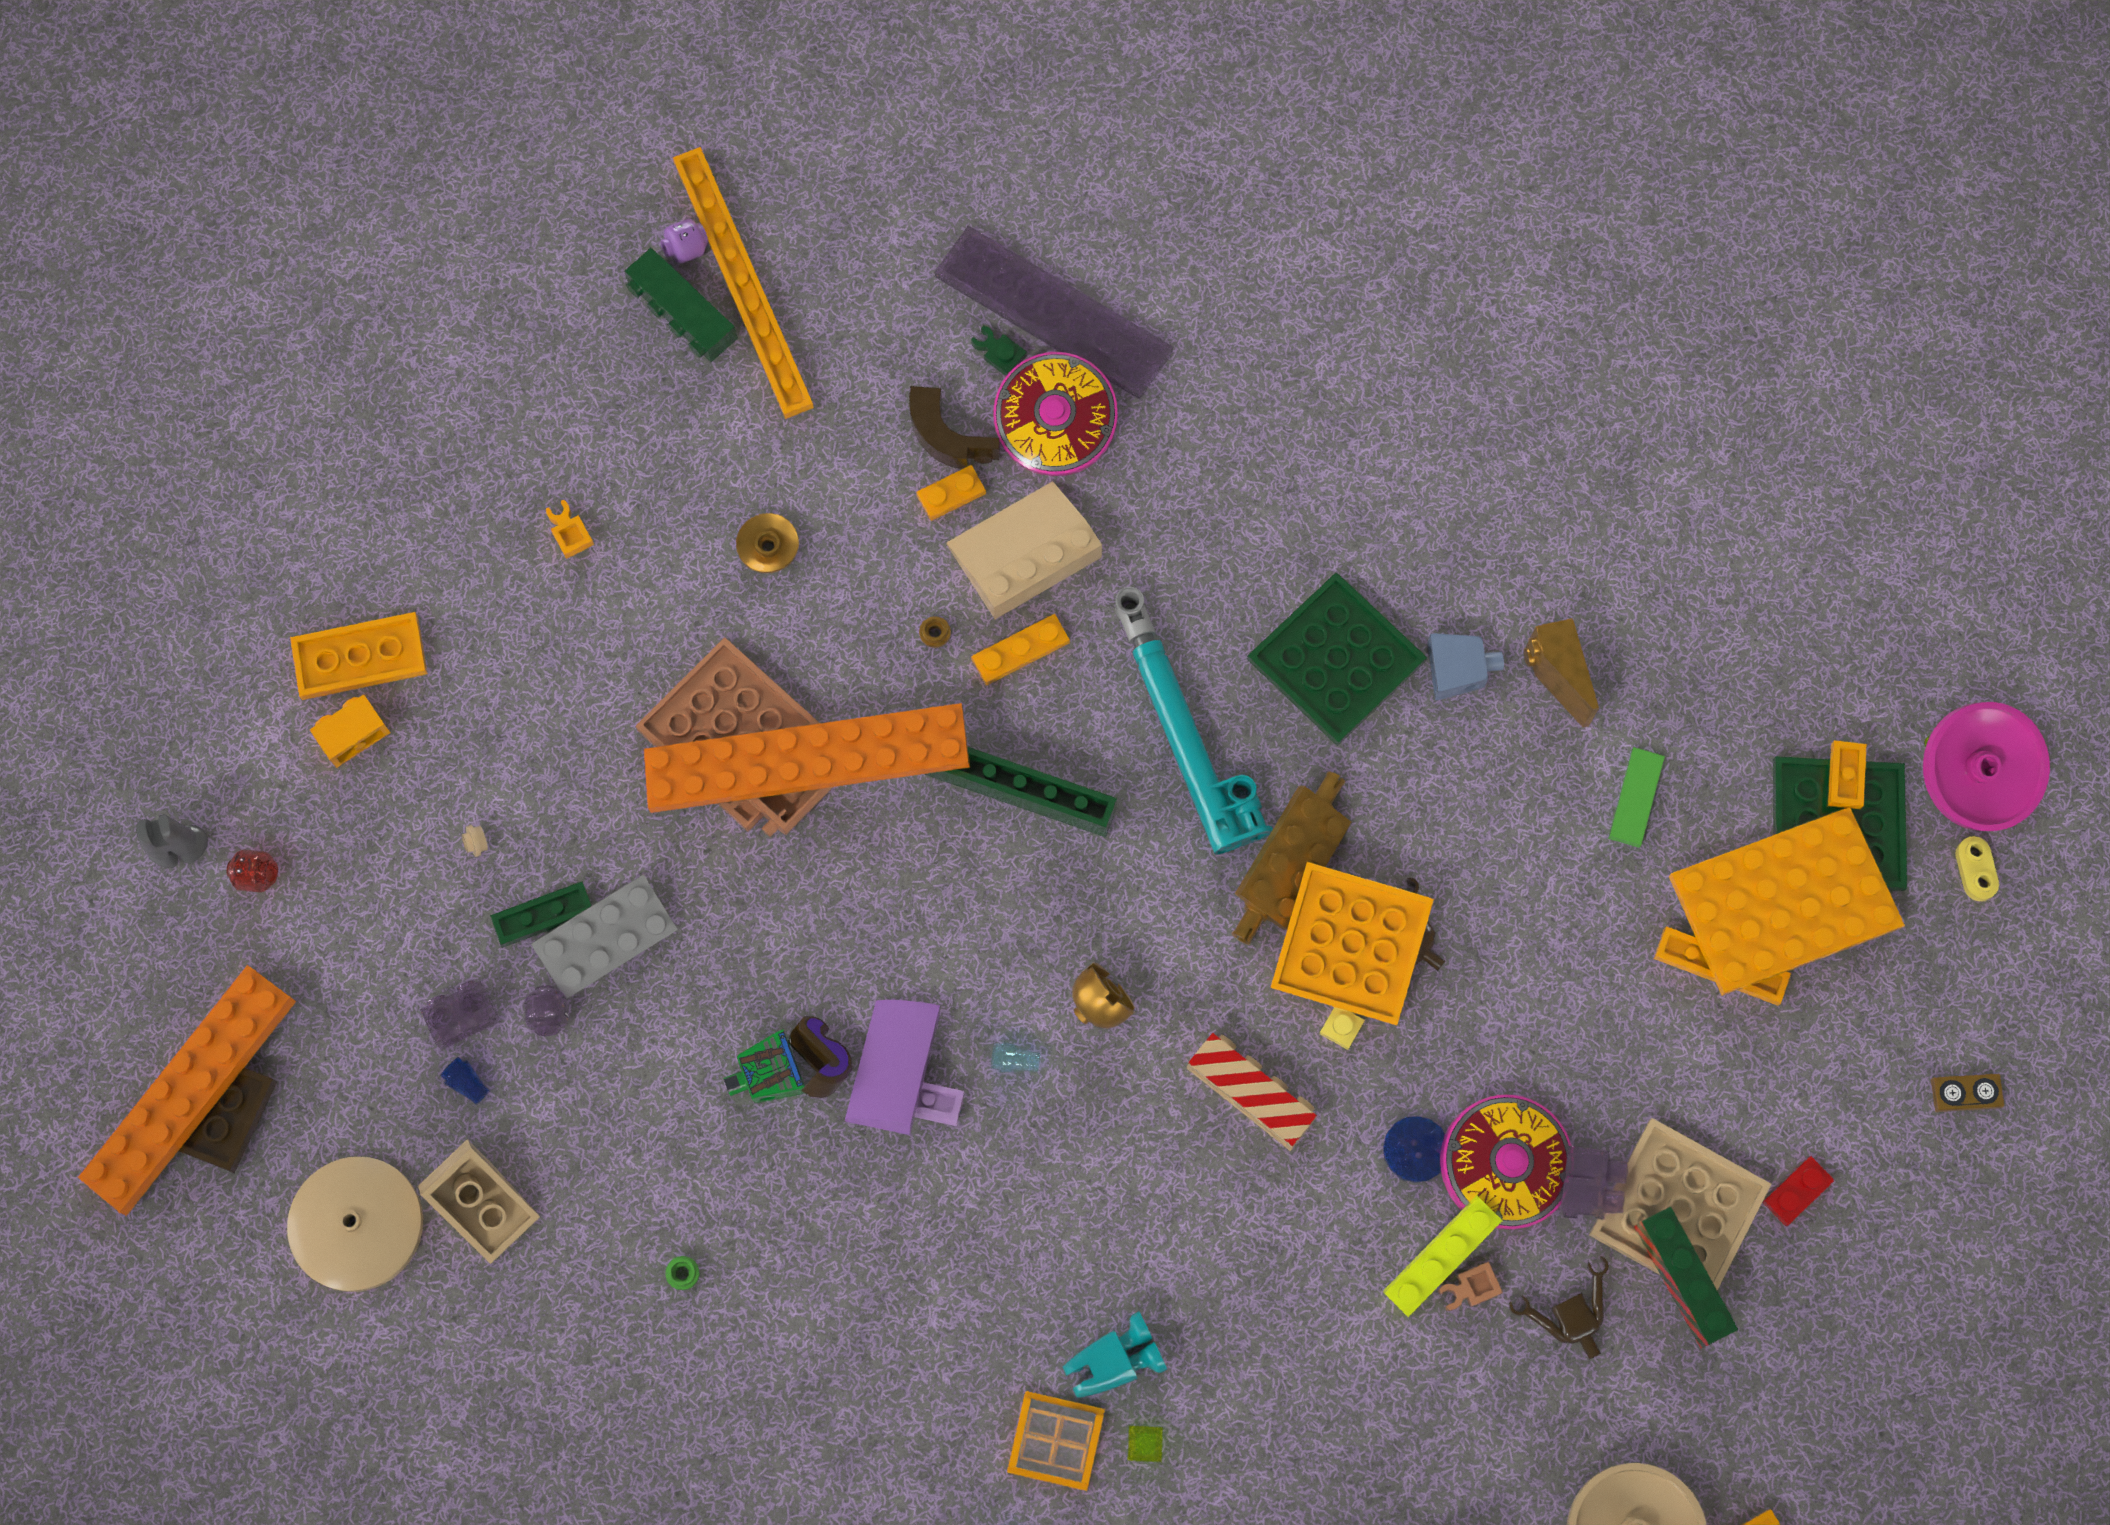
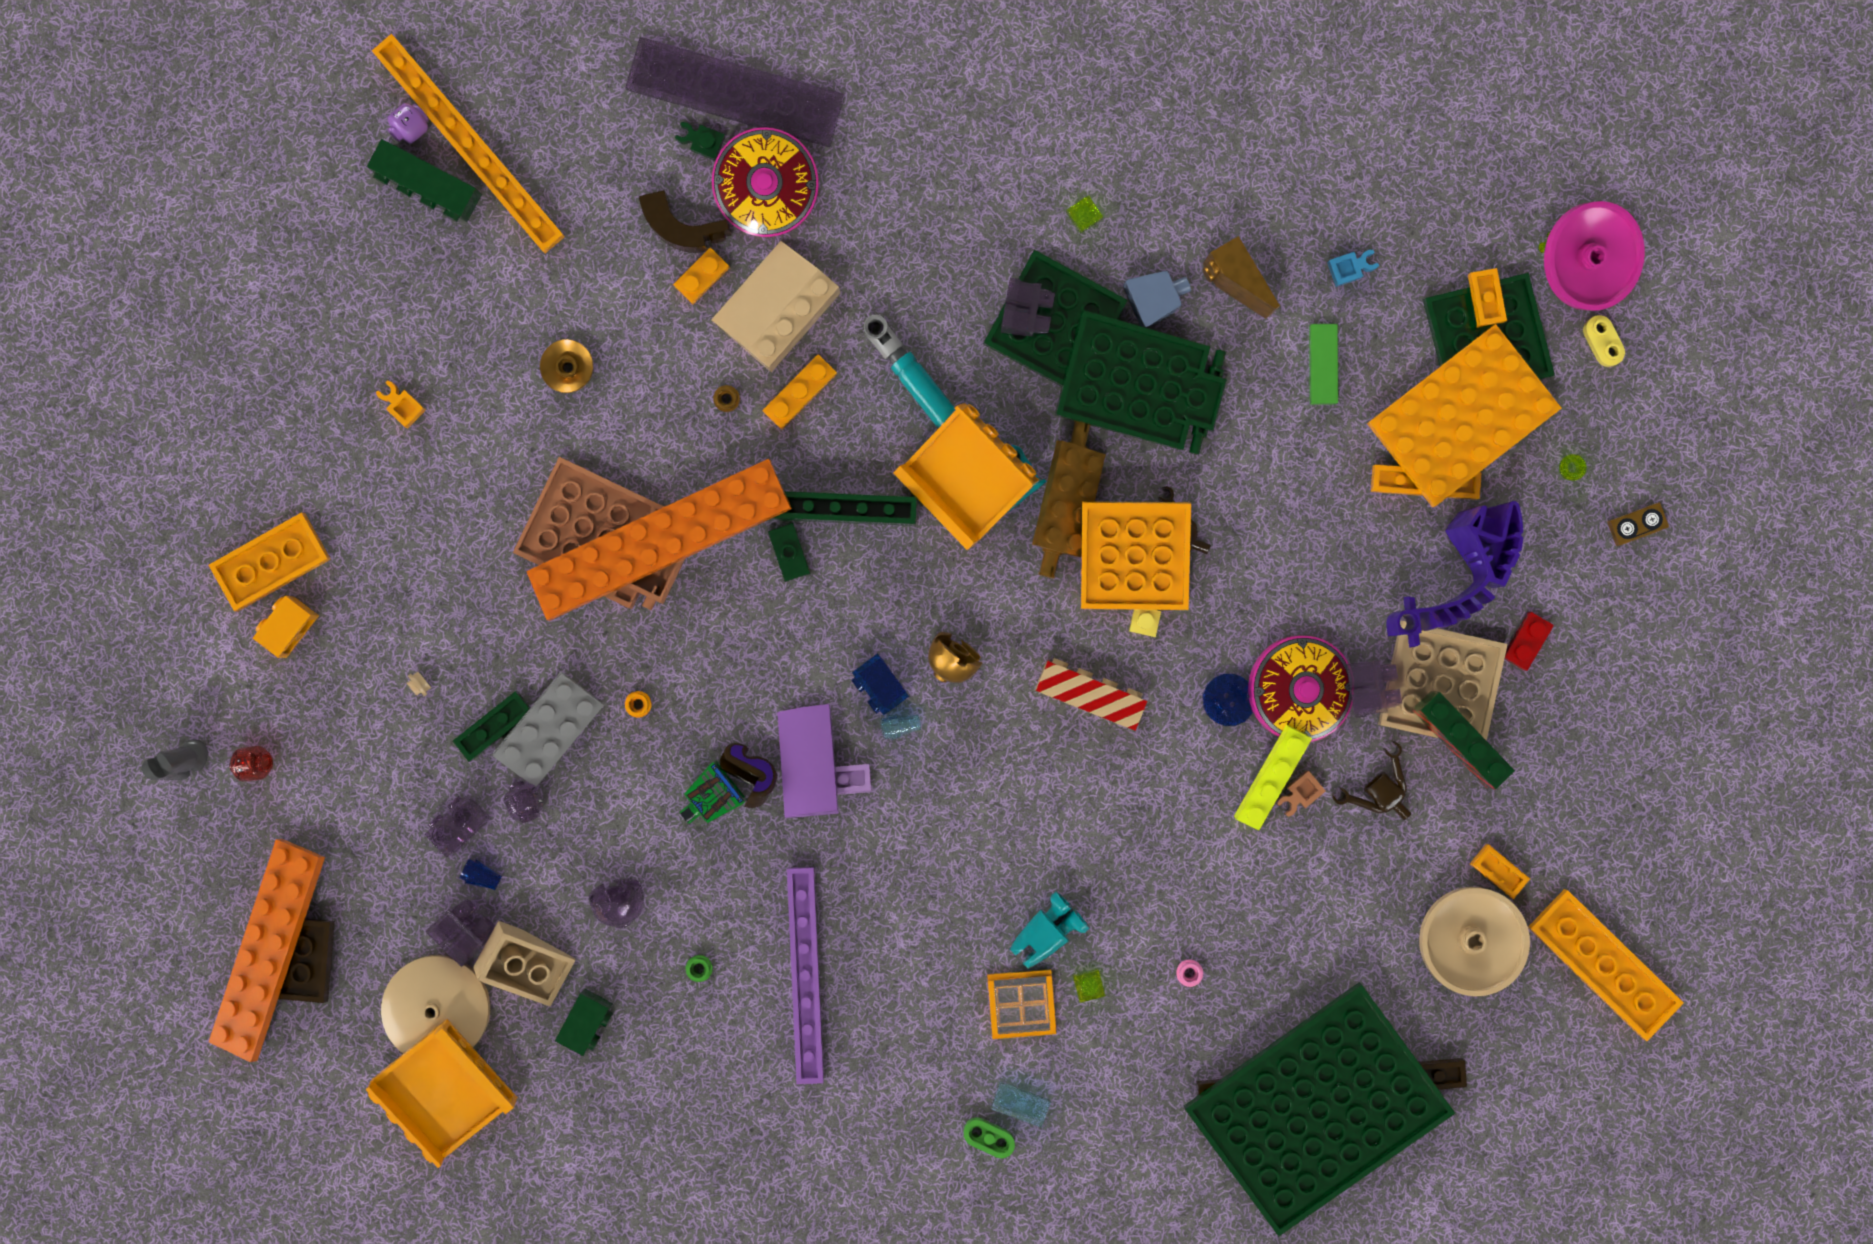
camera: 20 degrees left, 15 degrees up
(326, 1323) = (440, 1092): none -> light orange panel
(415, 1141) = (452, 924): none -> clear purple hips
(525, 1293) = (584, 1022): none -> dark green brick
(614, 1163) = (617, 904): none -> clear purple cylinder
(710, 934) = (629, 704): none -> light orange plate
(805, 1322) = (805, 975): none -> medium lavender plate
(949, 823) = (789, 552): none -> dark green plate
(1006, 1002) = (879, 684): none -> clear blue brick
(1183, 794) = (967, 476): none -> light orange panel
(1273, 1455) = (1189, 981): none -> bright pink plate
(1302, 627) = (1021, 308): none -> clear purple hips
(1405, 551) = (1084, 214): none -> clear neon green plate
(1417, 753) = (1141, 383): none -> dark green plate
(1692, 1460) = (1499, 871): none -> light orange plate
(1693, 698) = (1348, 267): none -> dark azure plate
(1775, 1062) = (1490, 546): none -> dark purple piece
(1910, 995) = (1580, 465): none -> clear neon green plate

